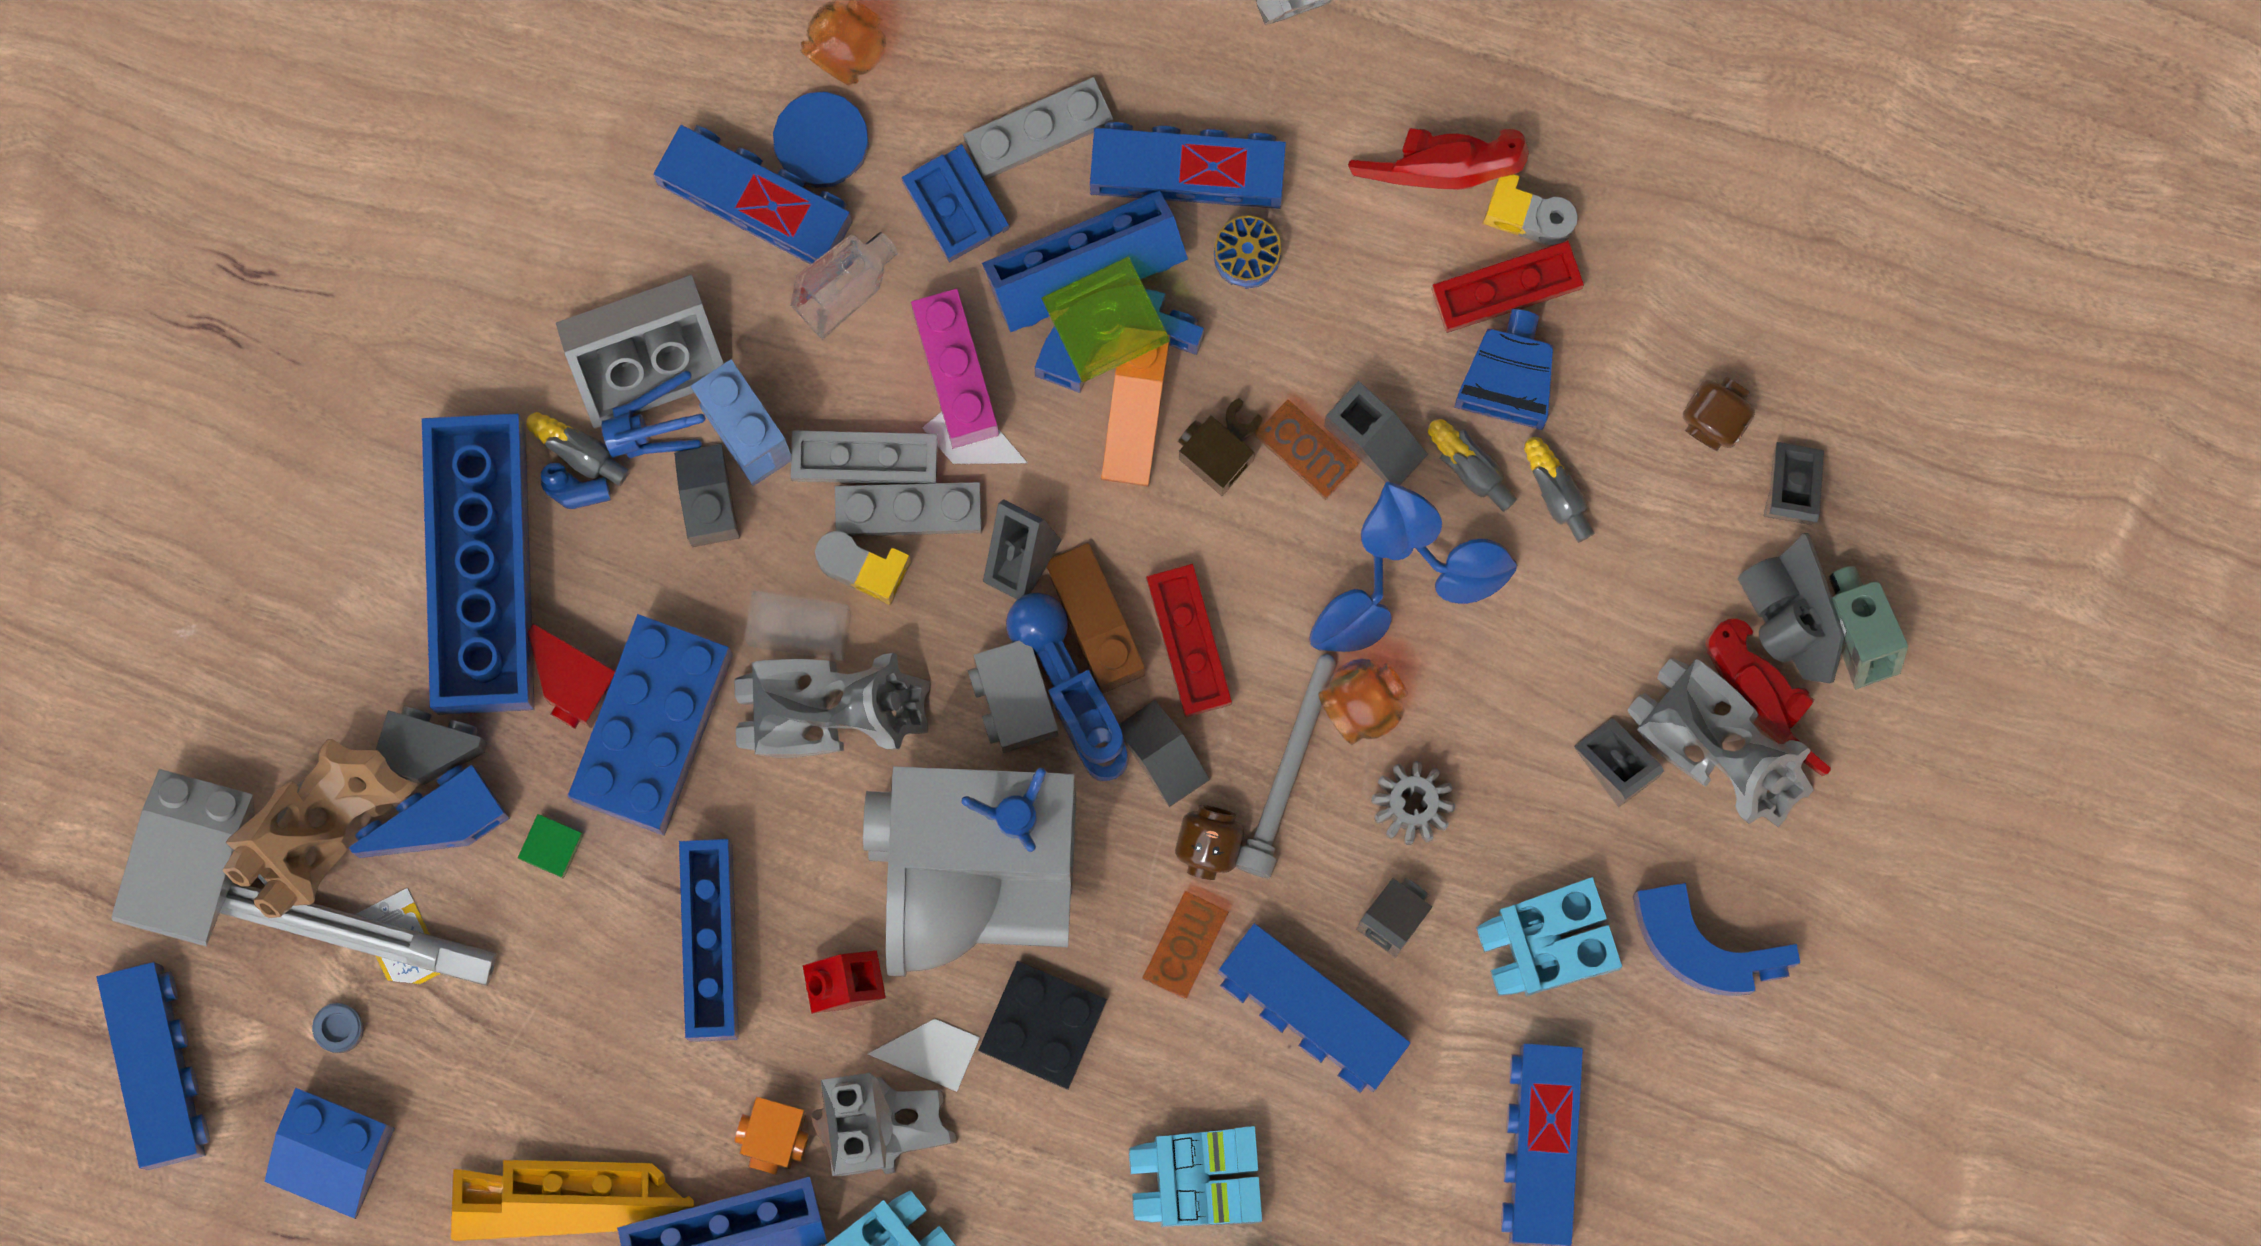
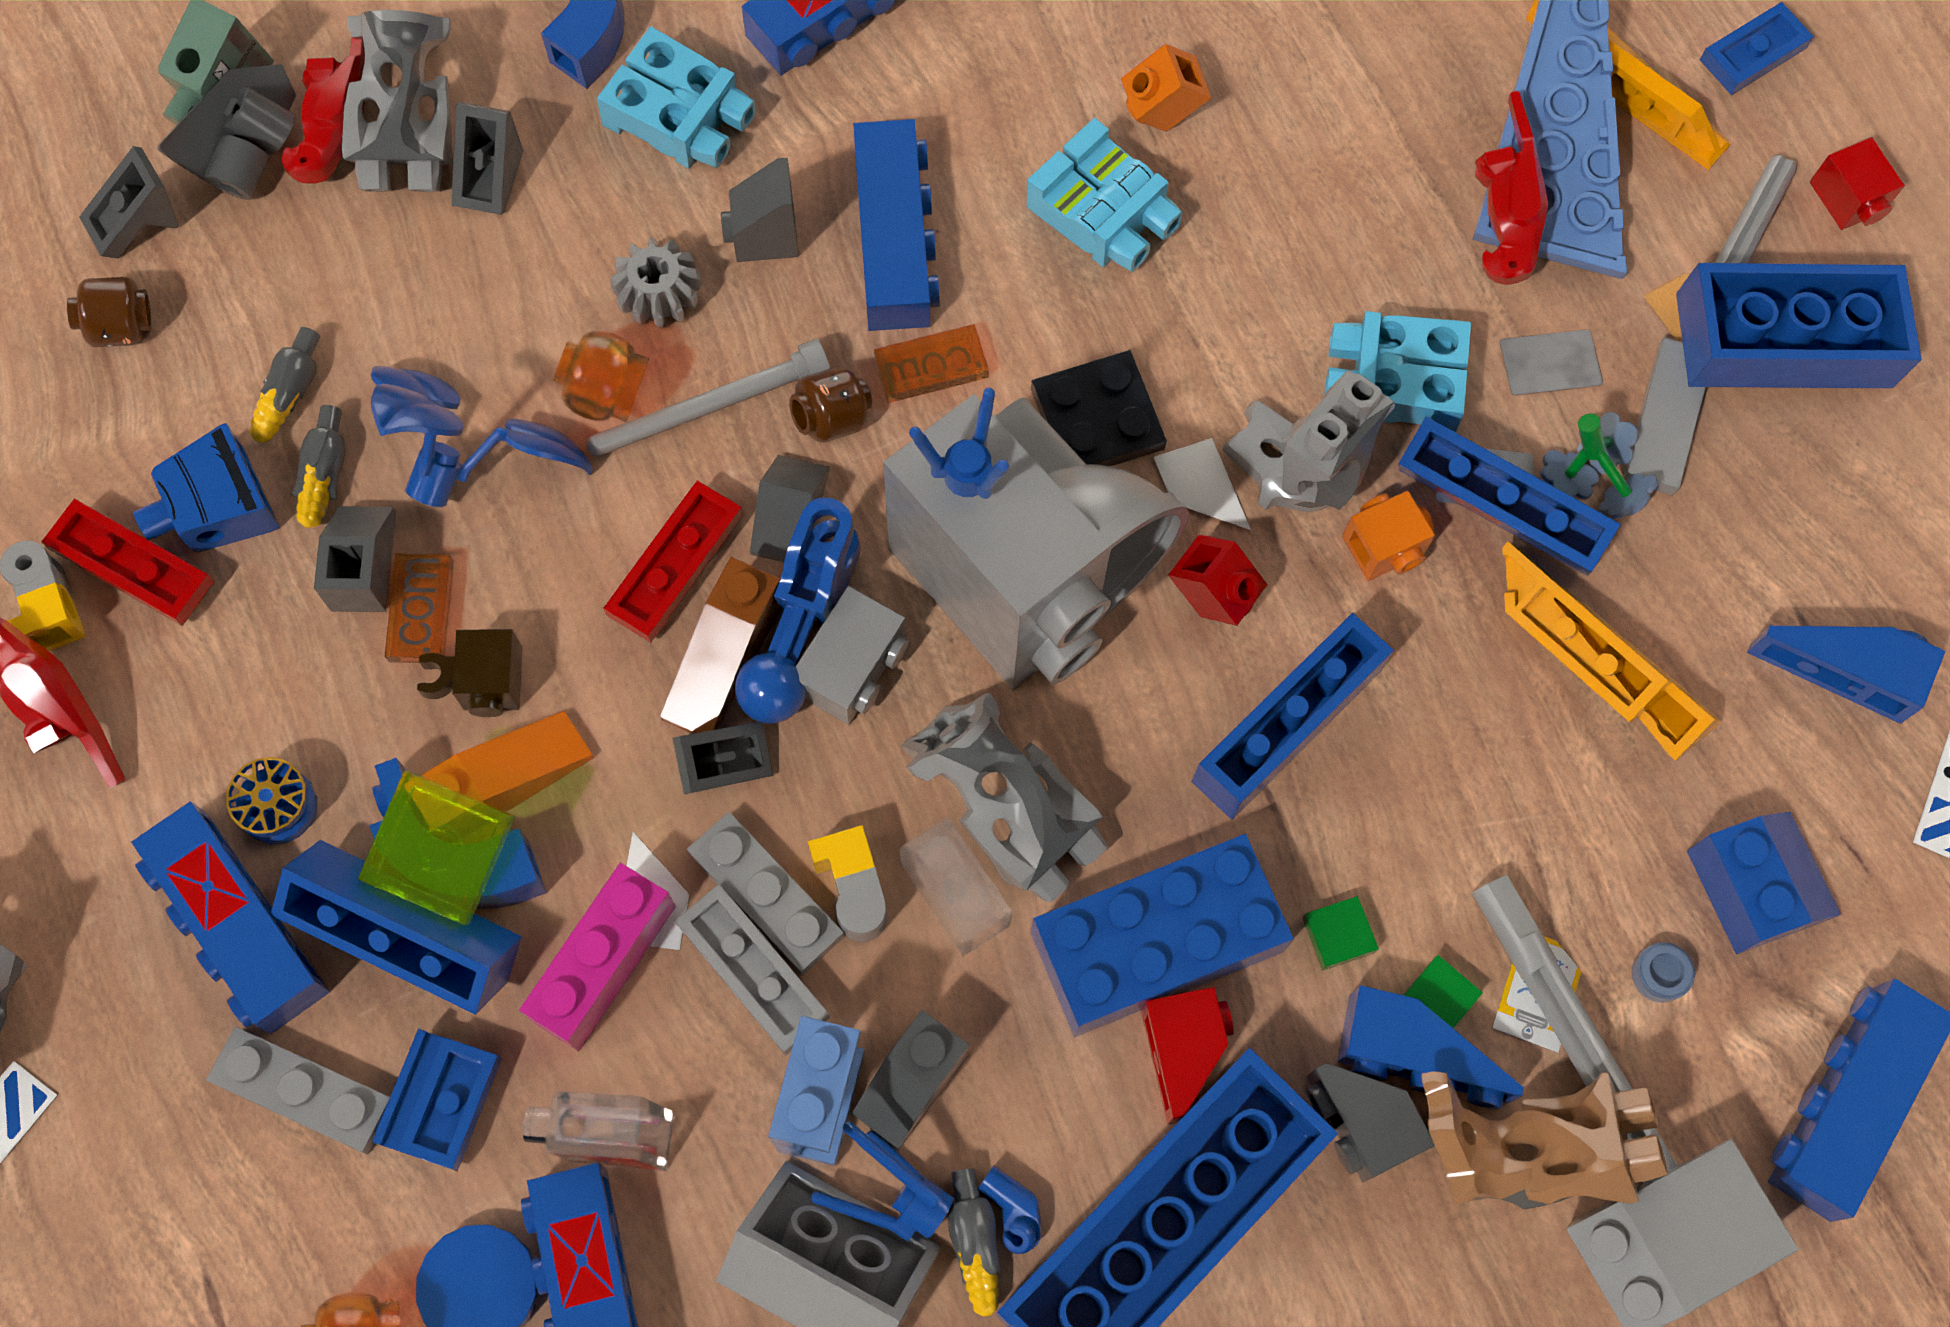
camera: 135 degrees left, 10 degrees down
(454, 871) = (1444, 991): none -> green tile

